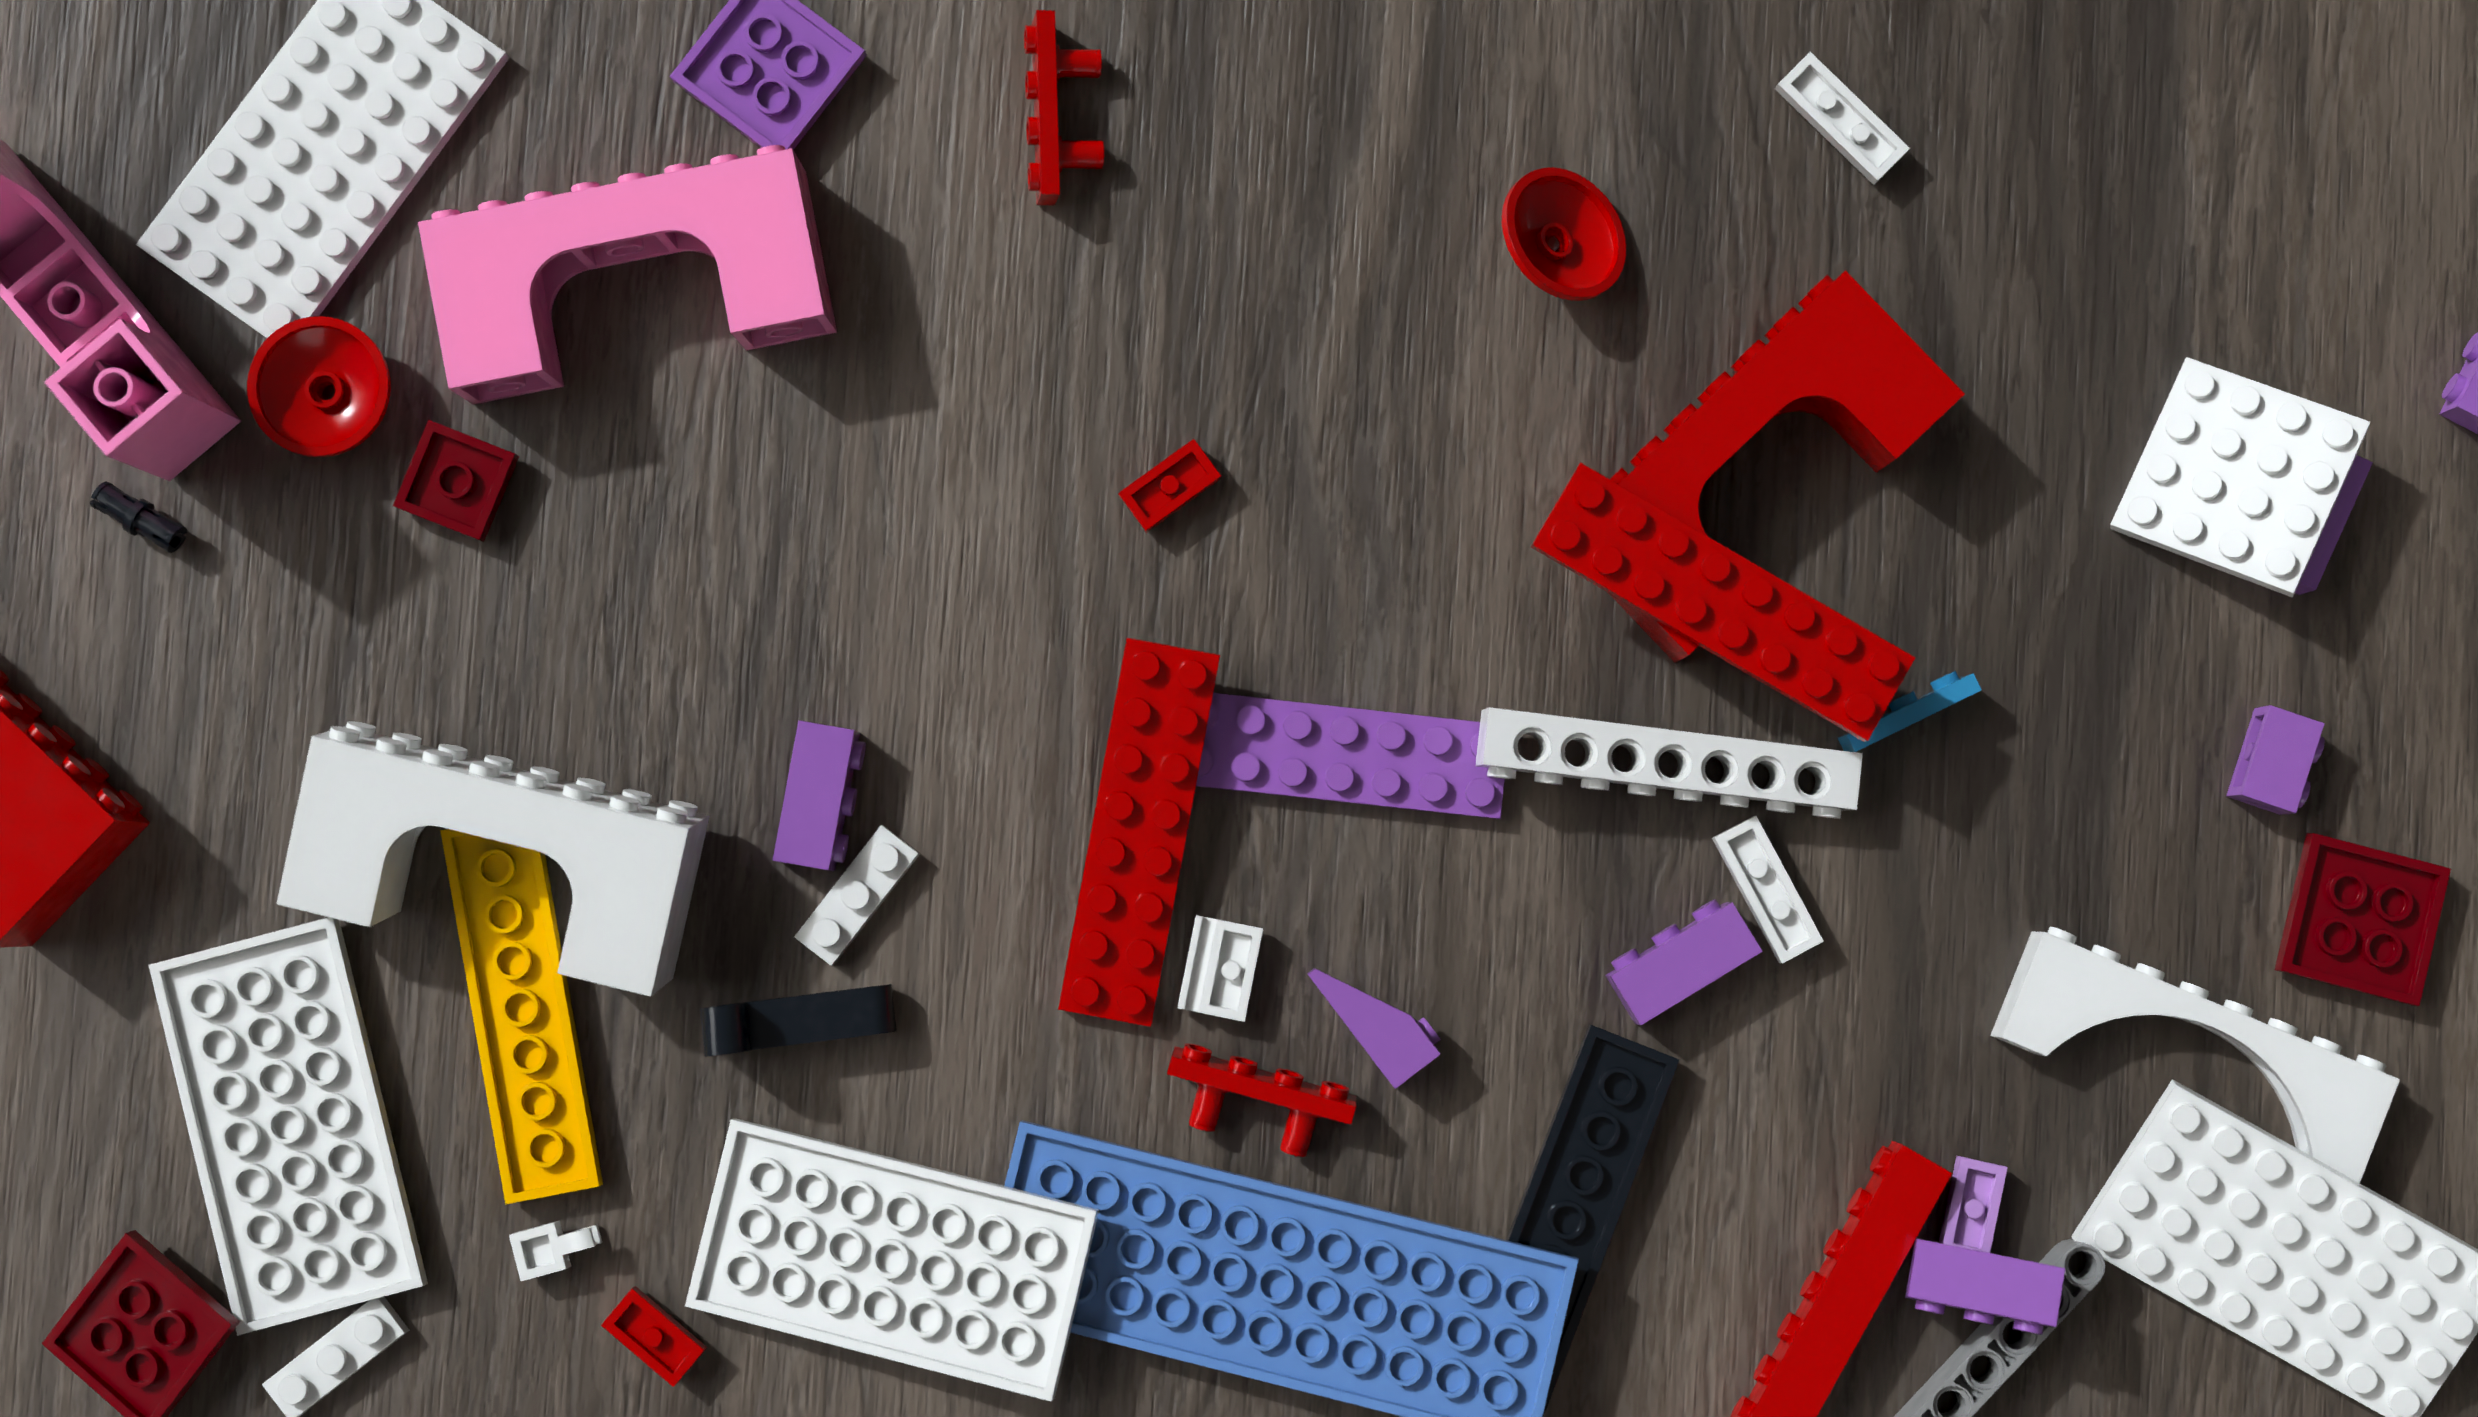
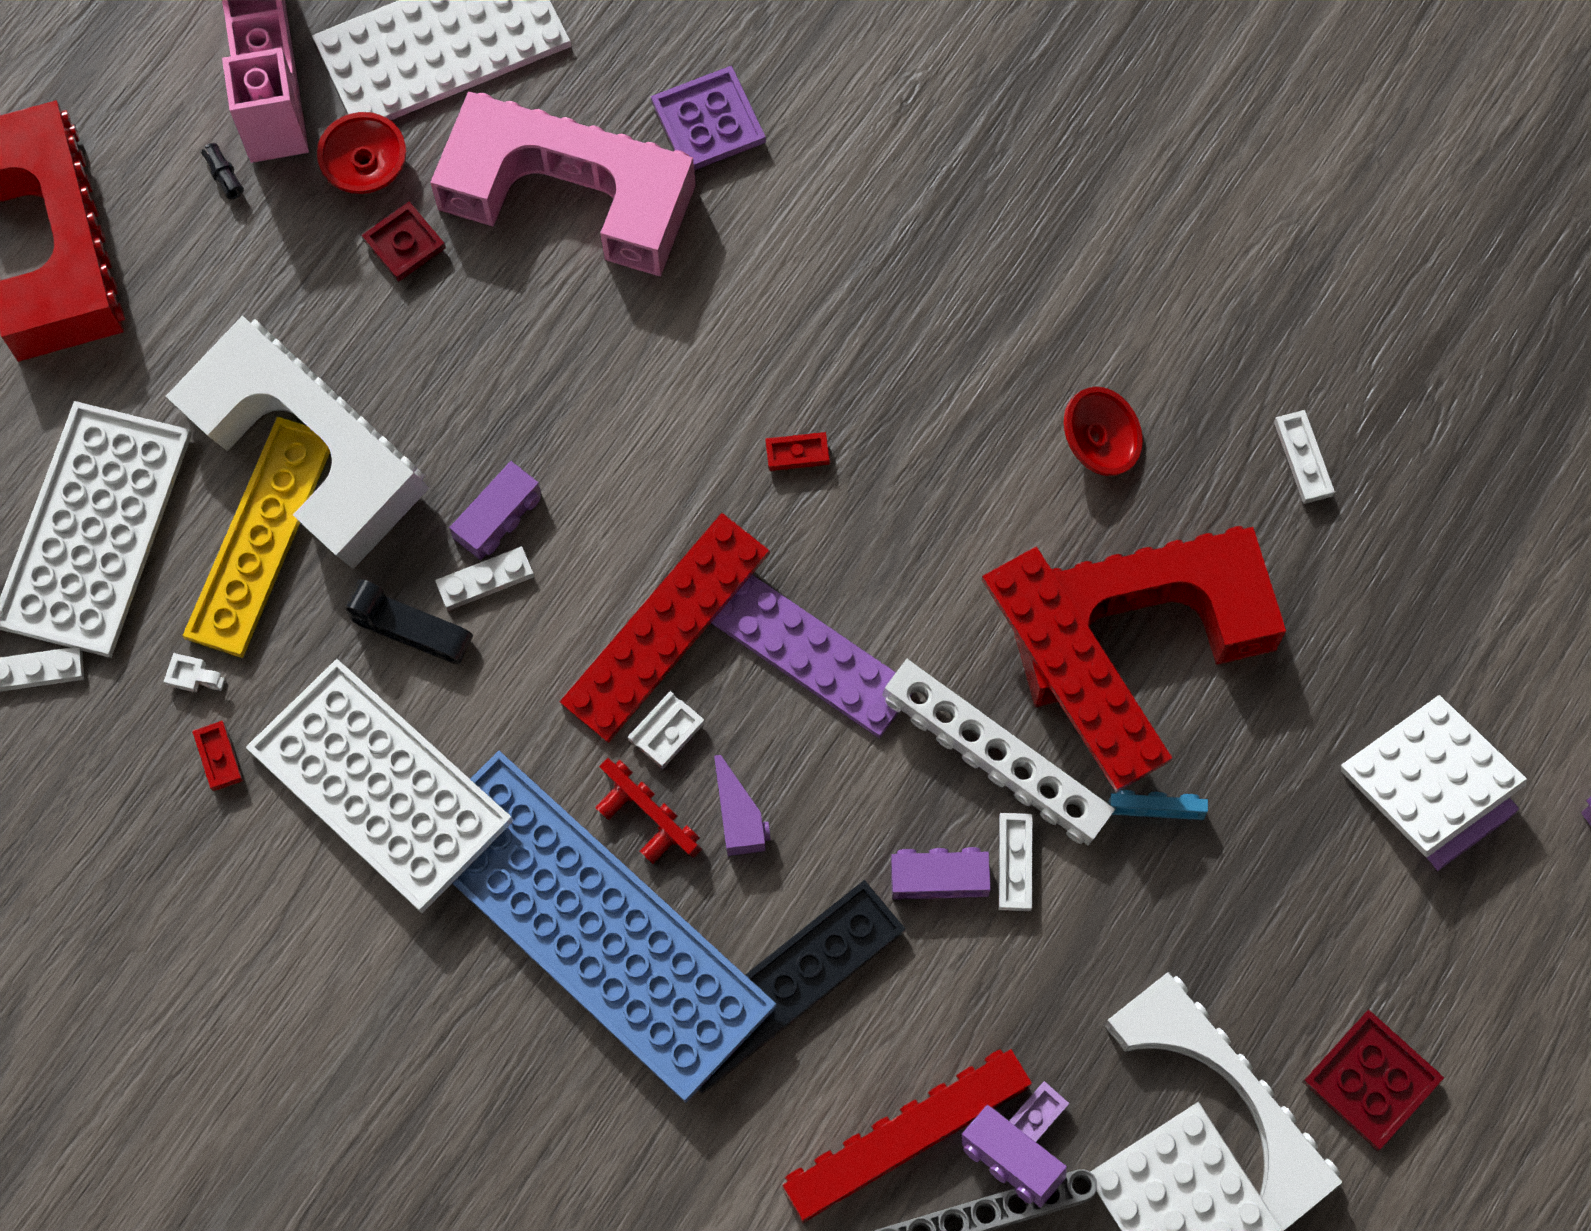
camera: 30 degrees right, 15 degrees down
(1042, 129) = (863, 197): red plate -> none
(2276, 760) = (1368, 955): medium lavender brick -> none

